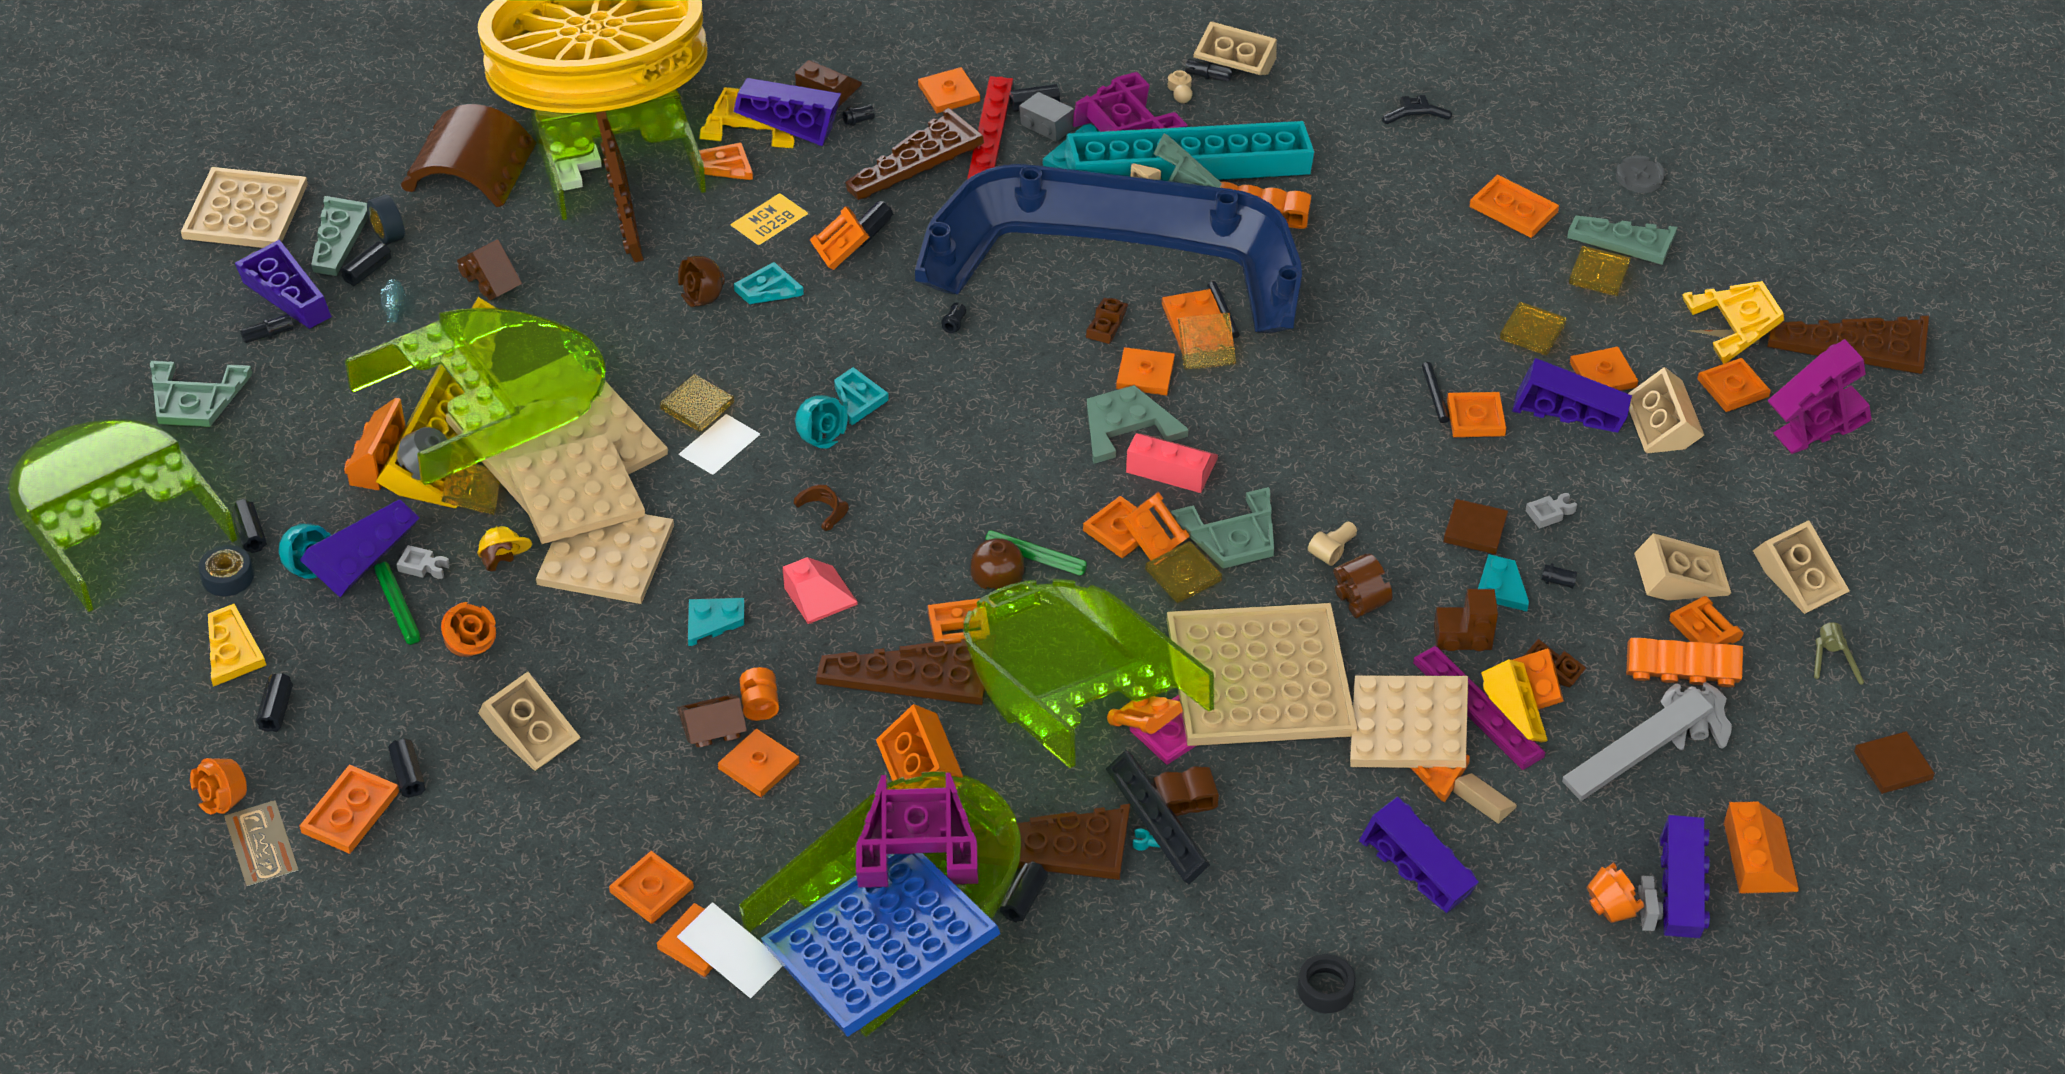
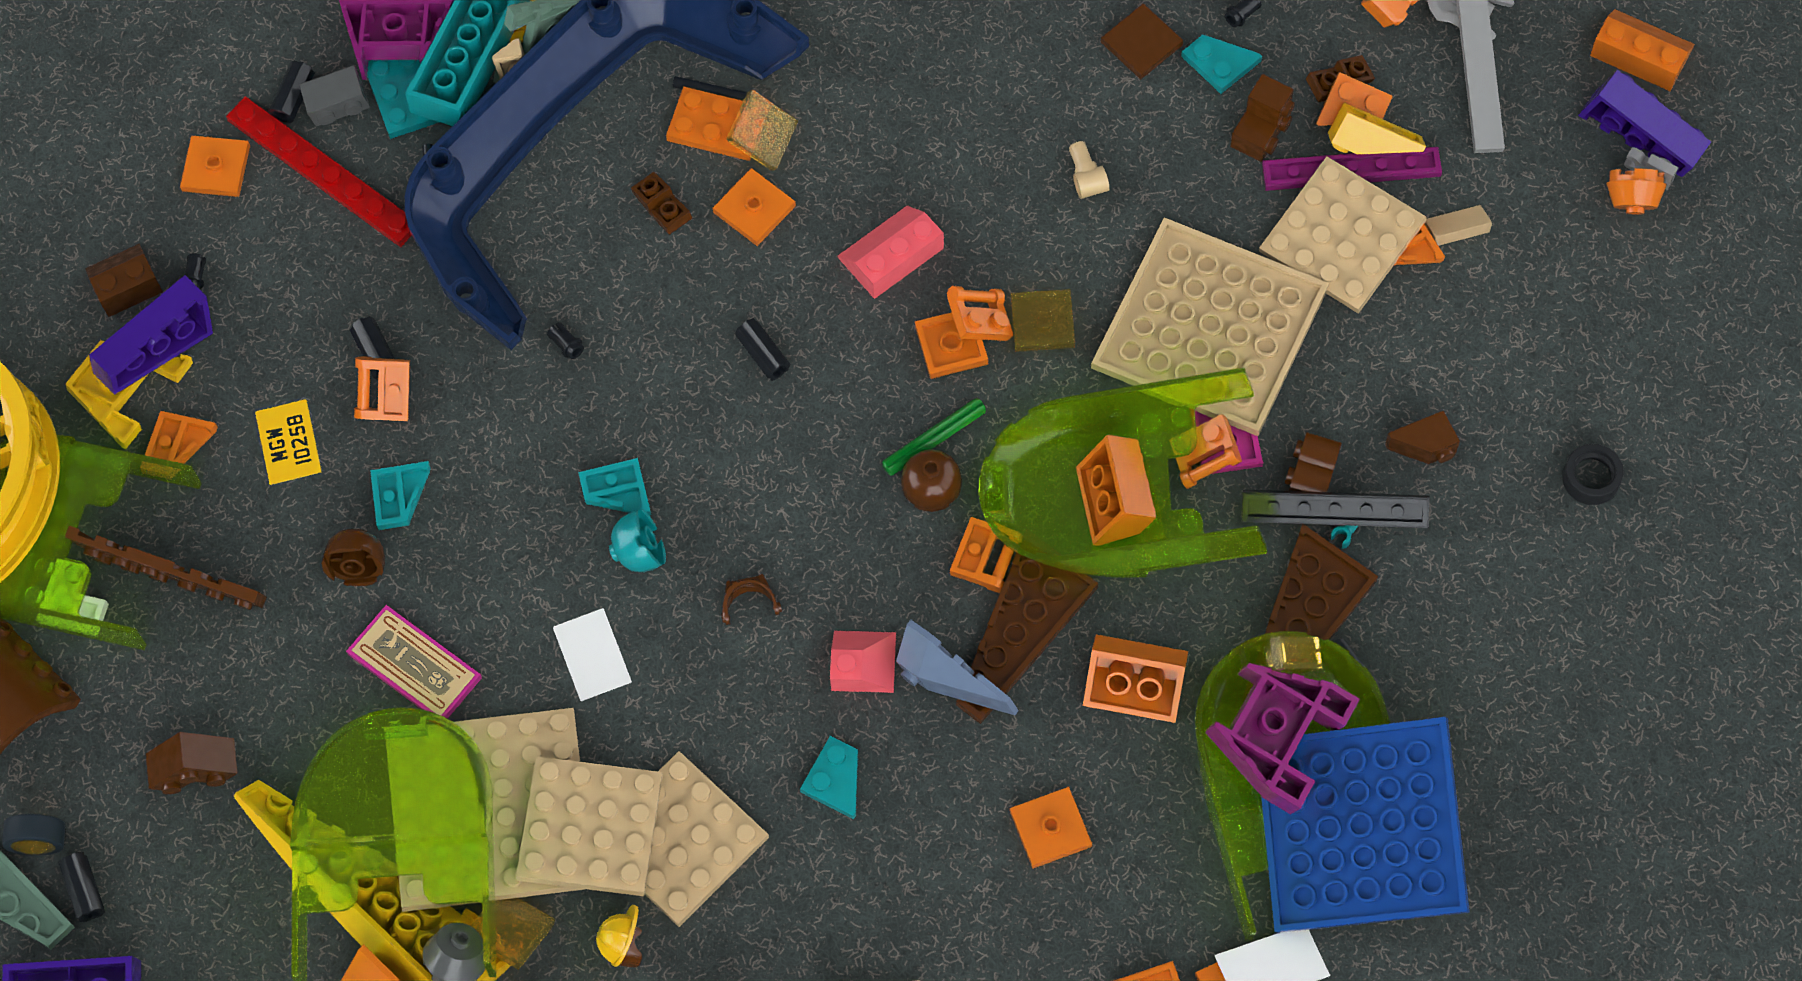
camera: 55 degrees left, 20 degrees up
(392, 300) = (160, 884): clear light blue plant -> none
(644, 353) = (413, 663): none -> tile
(697, 402) = (526, 647): clear yellow tile -> none
(712, 720) = (973, 843): reddish brown slope -> none
(759, 694) = (983, 786): orange wheel -> none
(839, 628) = (933, 668): none -> sand blue wedge
(917, 153) = (299, 239): reddish brown wing -> none
(983, 805) = (1294, 653): none -> clear yellow tile
(1030, 423) = (762, 349): none -> black axle
(1066, 664) = (1115, 490): none -> orange slope
(1126, 412) = (797, 257): sand green wing -> none
(1233, 539) = (1030, 249): sand green wing -> none
(1269, 853) = (1425, 439): none -> reddish brown slope
(1362, 585) = (1165, 177): reddish brown brick -> none
(1419, 855) = (1502, 317): dark purple wedge -> none

